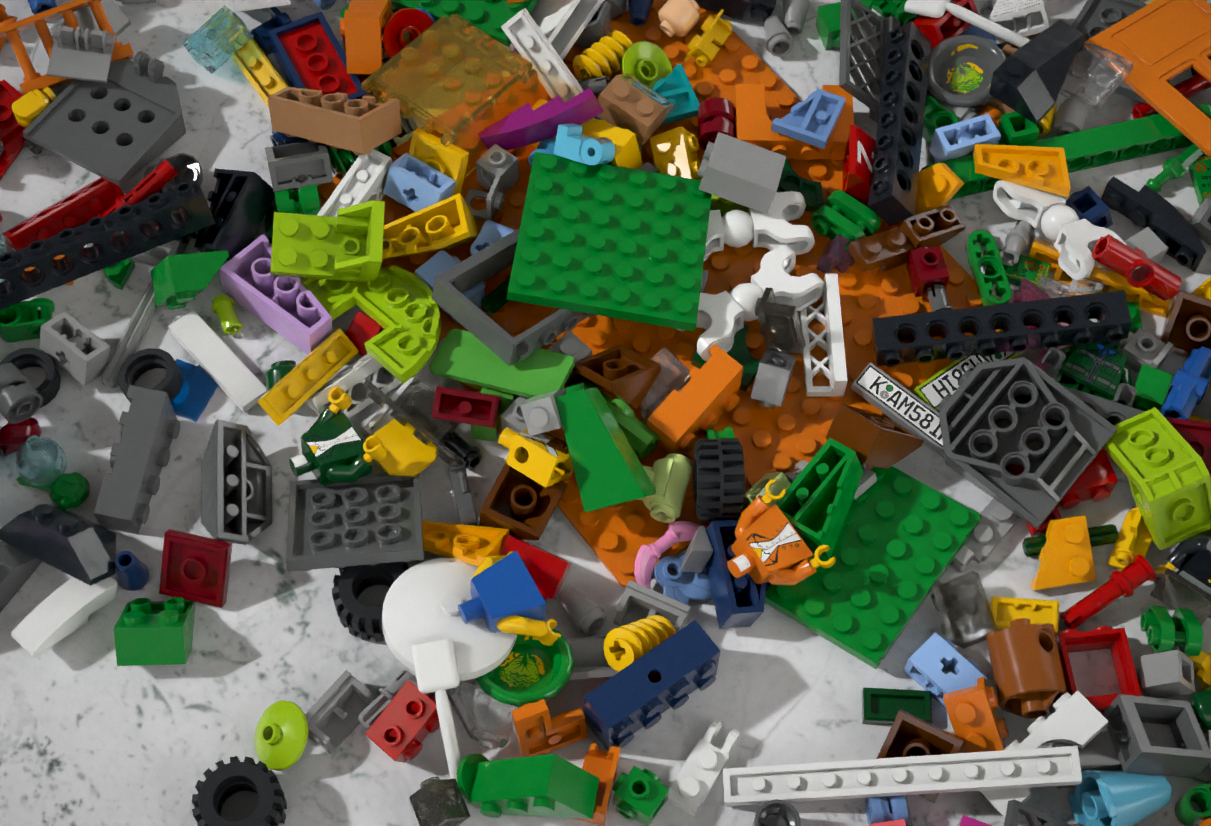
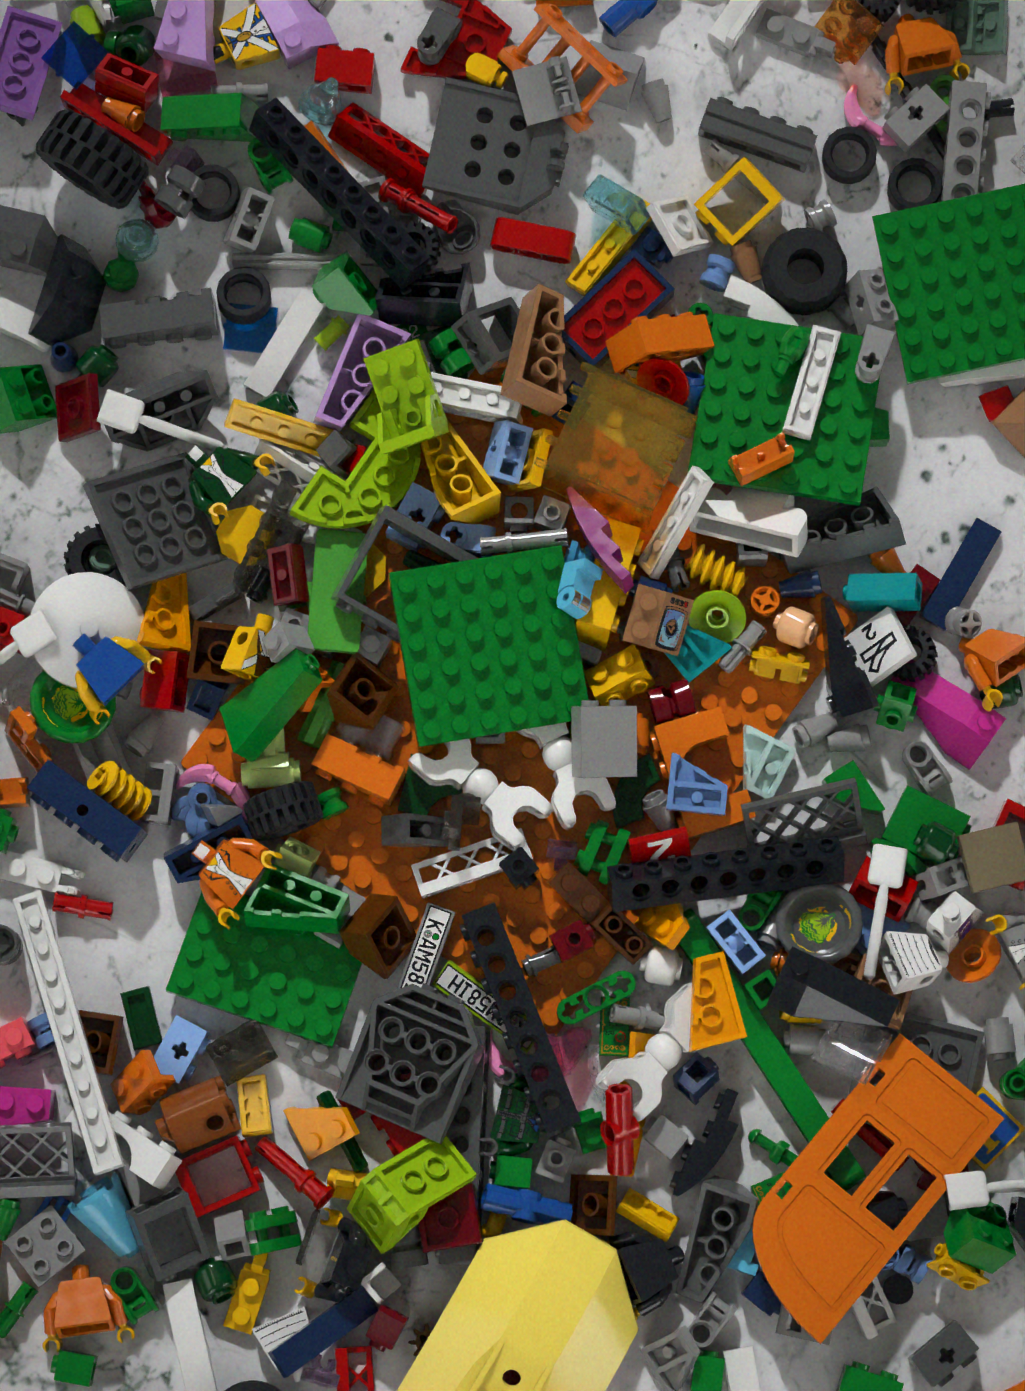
camera: 75 degrees right, 20 degrees up
(117, 303) = (310, 234): none -> green brick
(150, 537) = (98, 361): none -> dark green head
(217, 121) = (533, 240): none -> red beam
(227, 511) = (126, 414): none -> white piece
(353, 331) = (336, 451): none -> dark grey panel
(373, 591) = (101, 560): none -> sand green tile
(513, 199) = (525, 541): none -> light grey pin
(564, 535) = (207, 698): none -> dark blue bracket
(645, 29) = (766, 596): none -> orange wheel
(678, 56) = (742, 646): none -> light grey axle
(754, 731) = (82, 906): none -> red pin
(793, 77) = (764, 762): none -> light aqua wing
(818, 164) = (655, 808): none -> light grey cone
(845, 290) = (520, 869): none -> black bracket
(972, 208) = (661, 965): none -> white head

